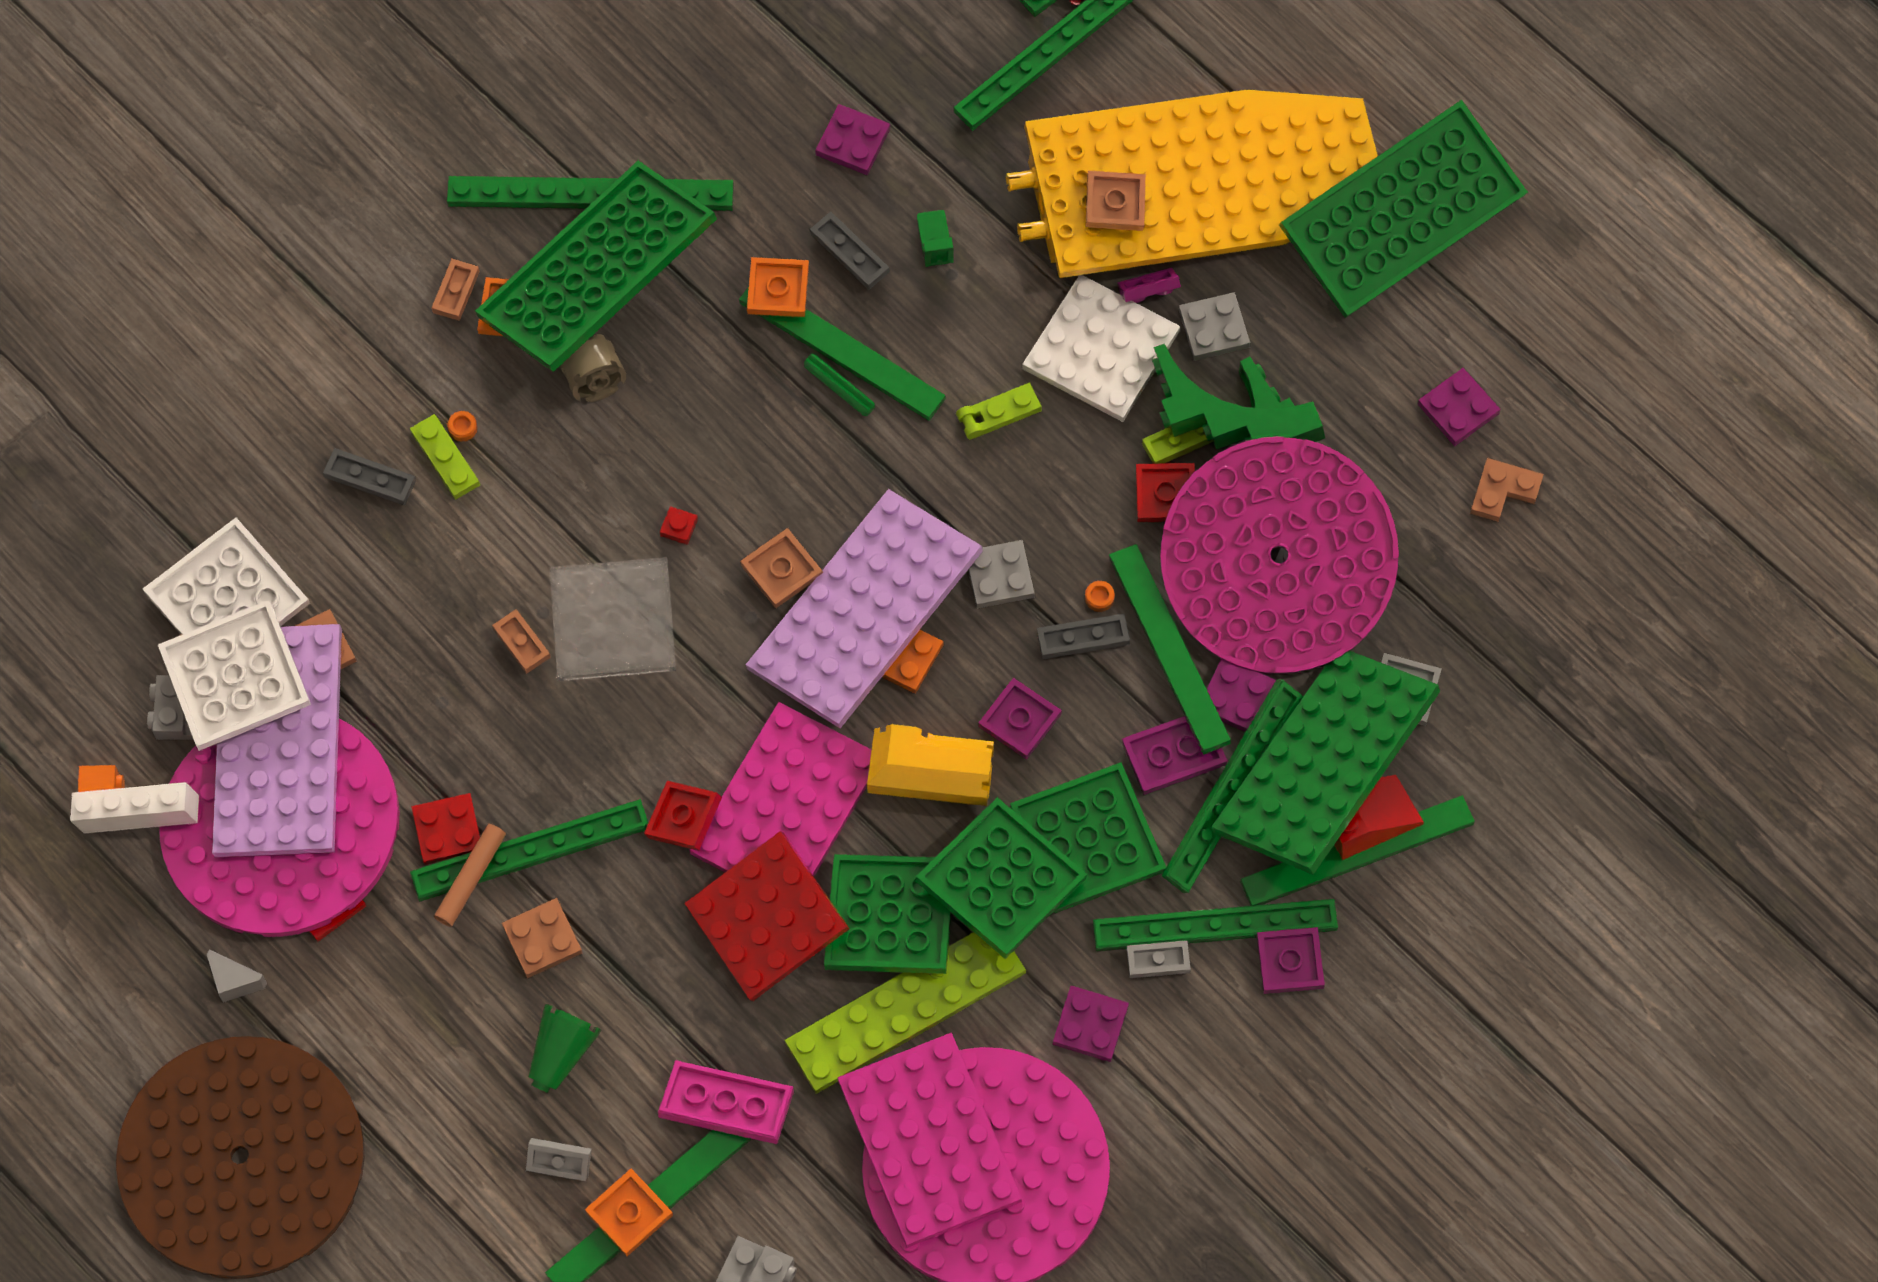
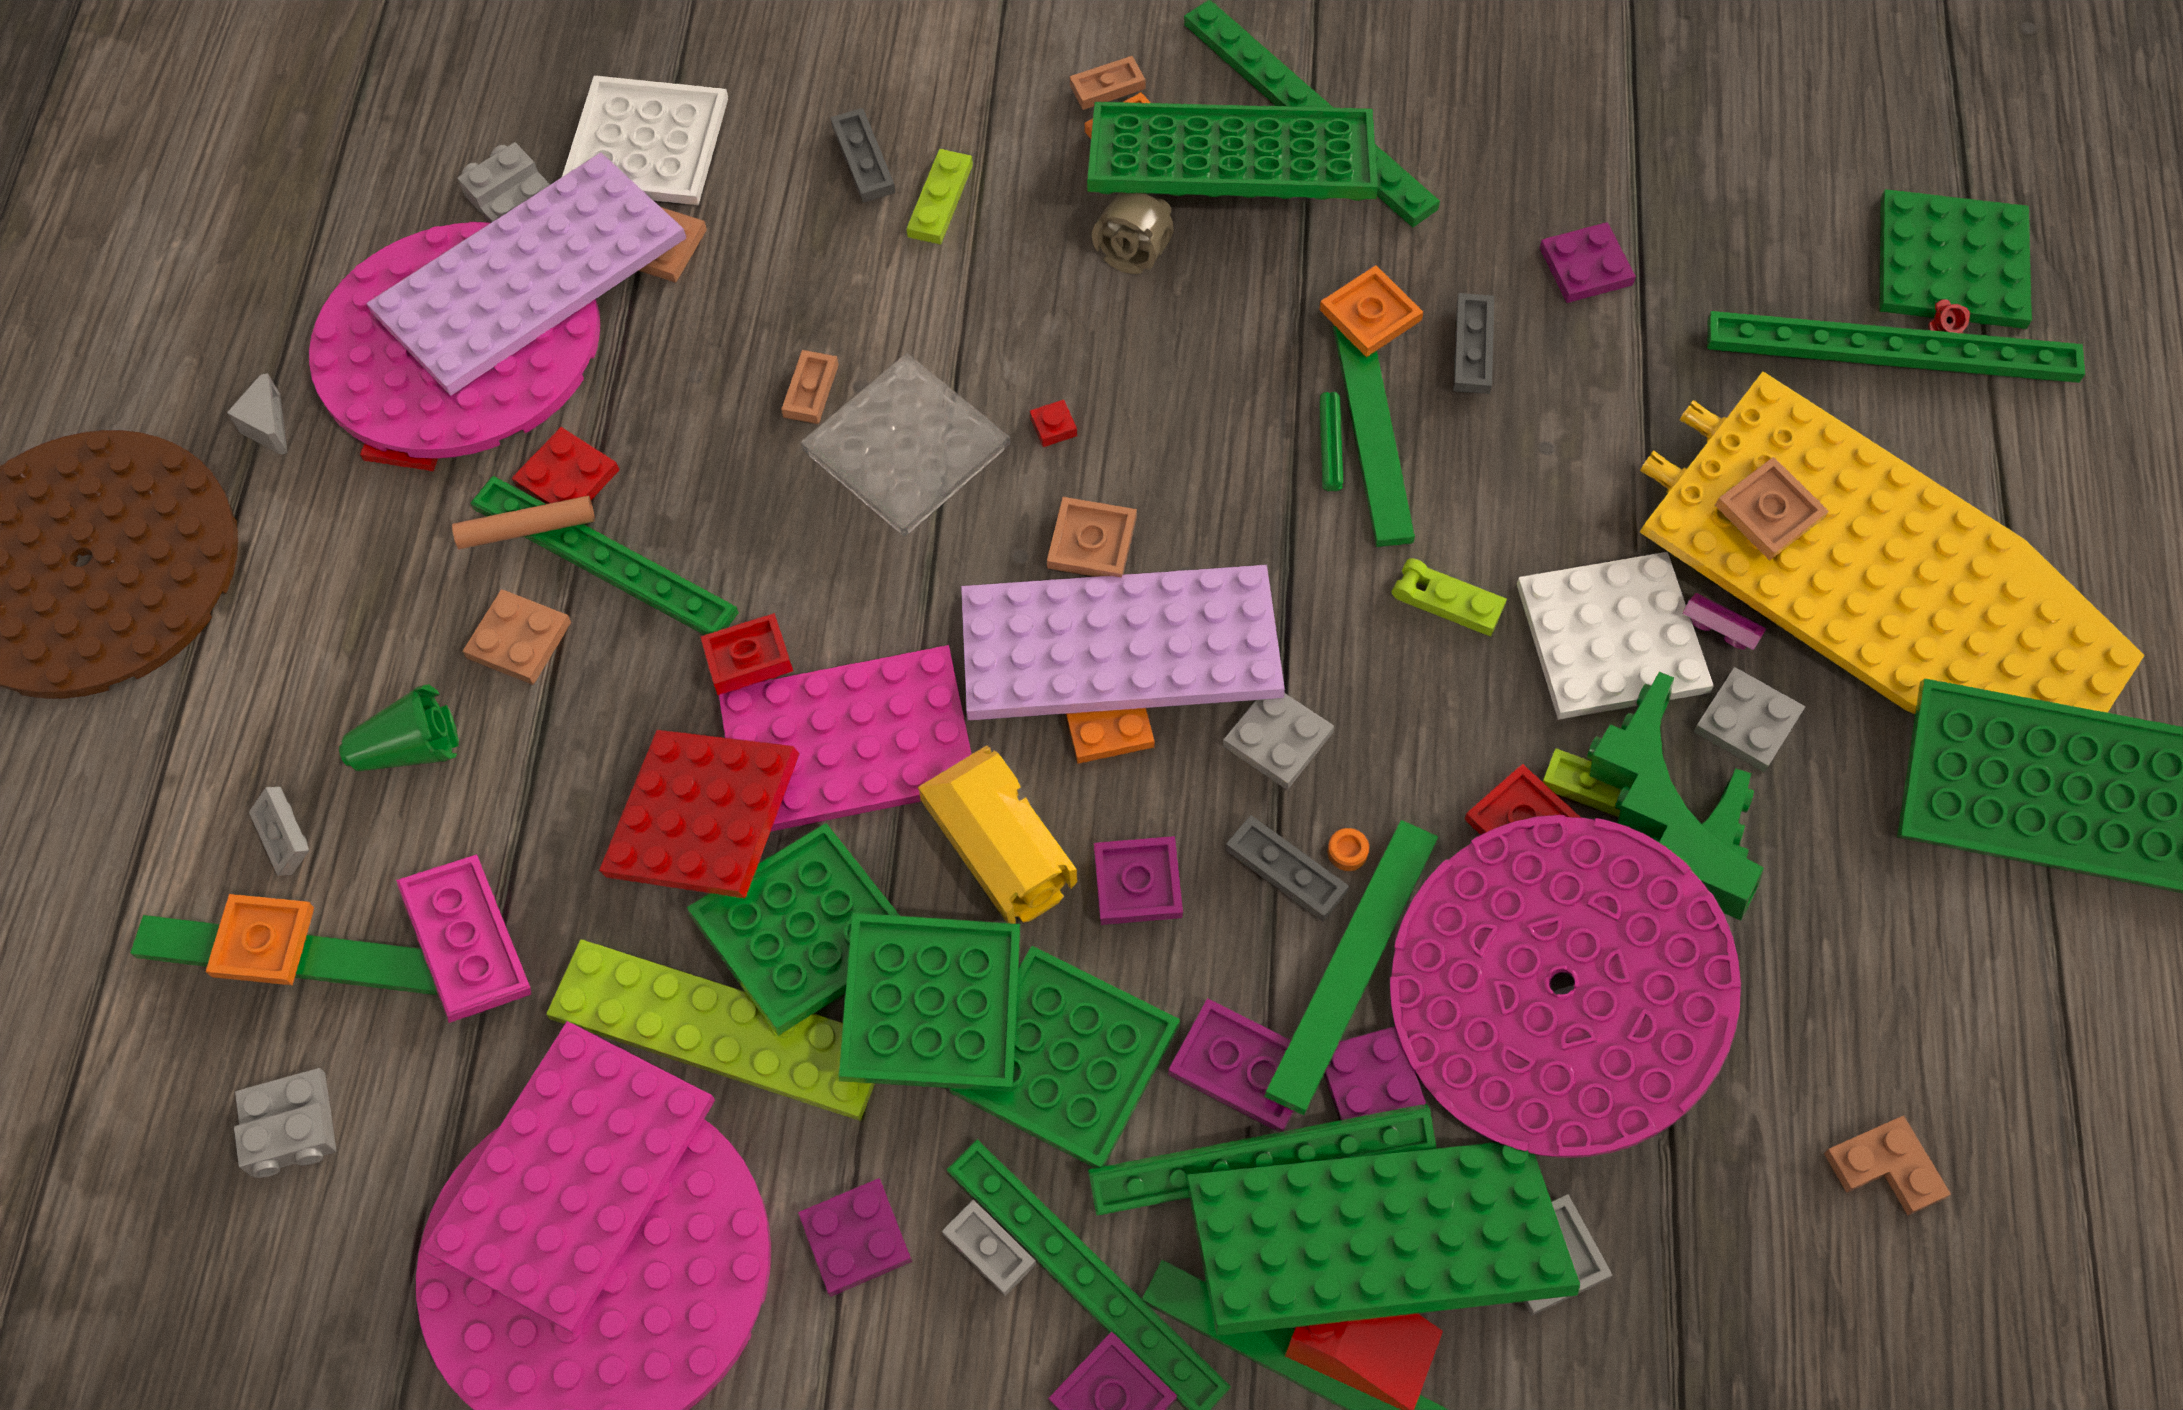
camera: 50 degrees right, 5 degrees down
(99, 778) = (375, 181): orange brick -> none
(134, 807) = (365, 217): white brick -> none
(234, 675) = (553, 185): white plate -> none
(462, 426) = (983, 186): orange tile -> none
(935, 238) = (1561, 405): green bracket -> none
(1458, 406) = (1928, 1036): magenta plate -> none

